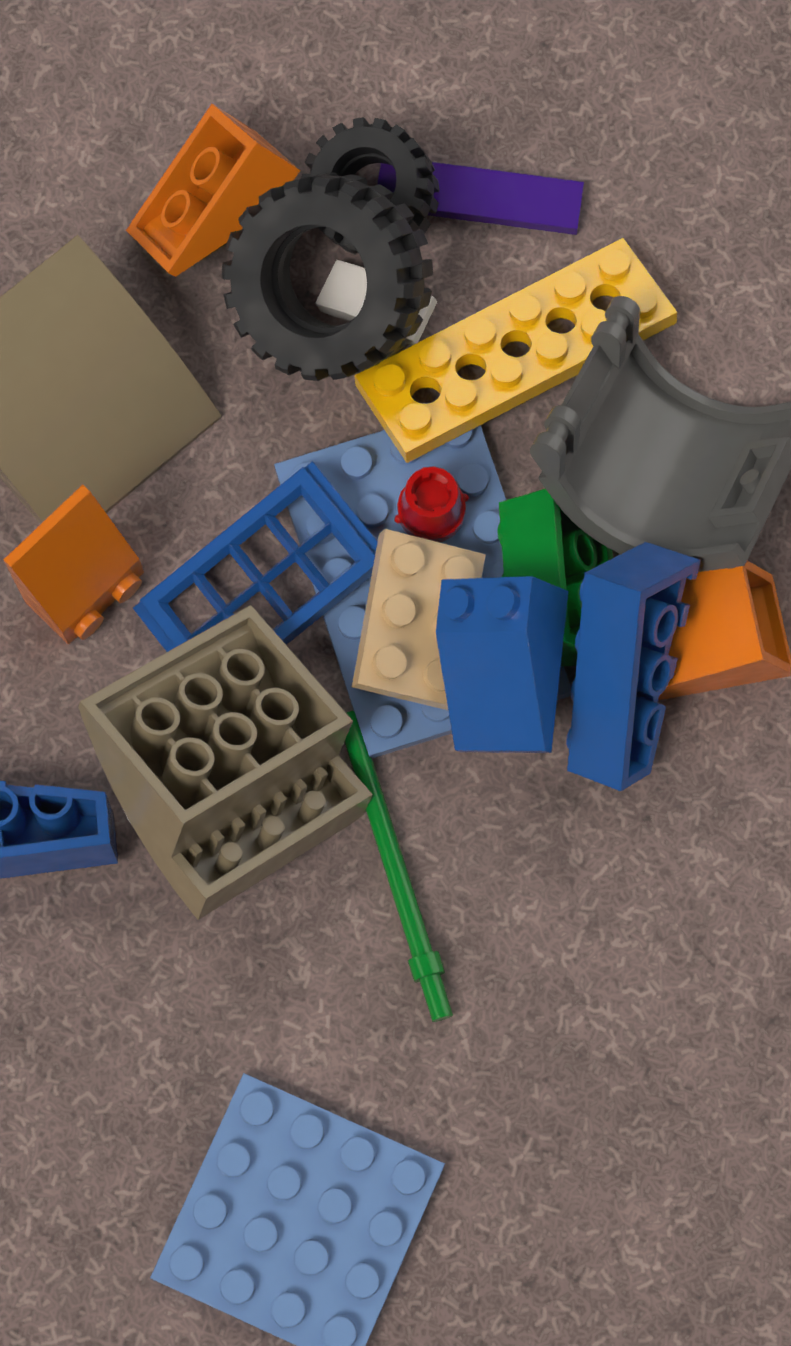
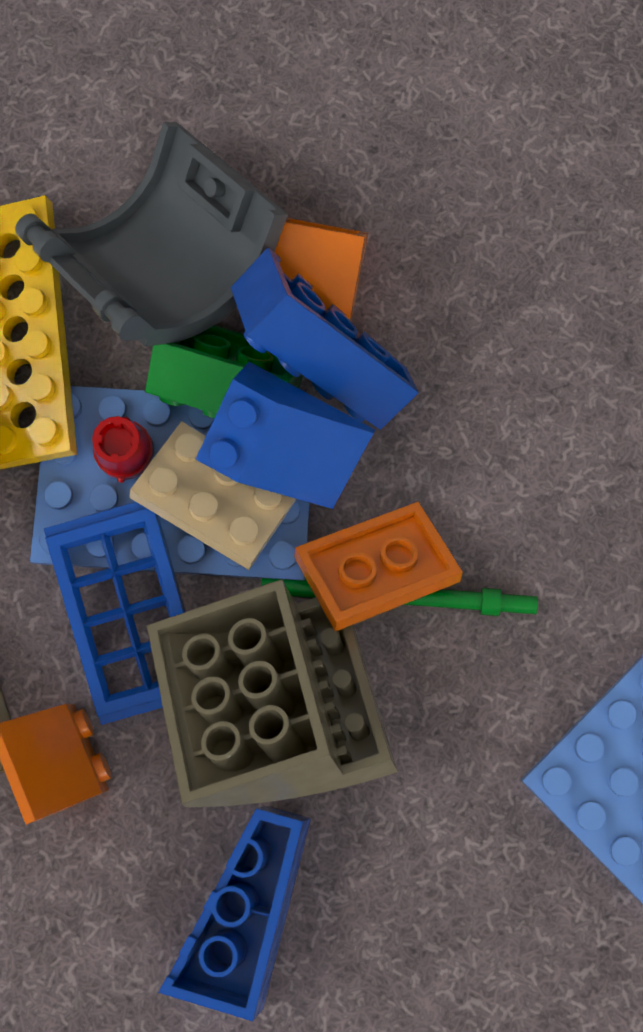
camera: 70 degrees left, 5 degrees up
(413, 823) = (377, 565): none -> orange plate

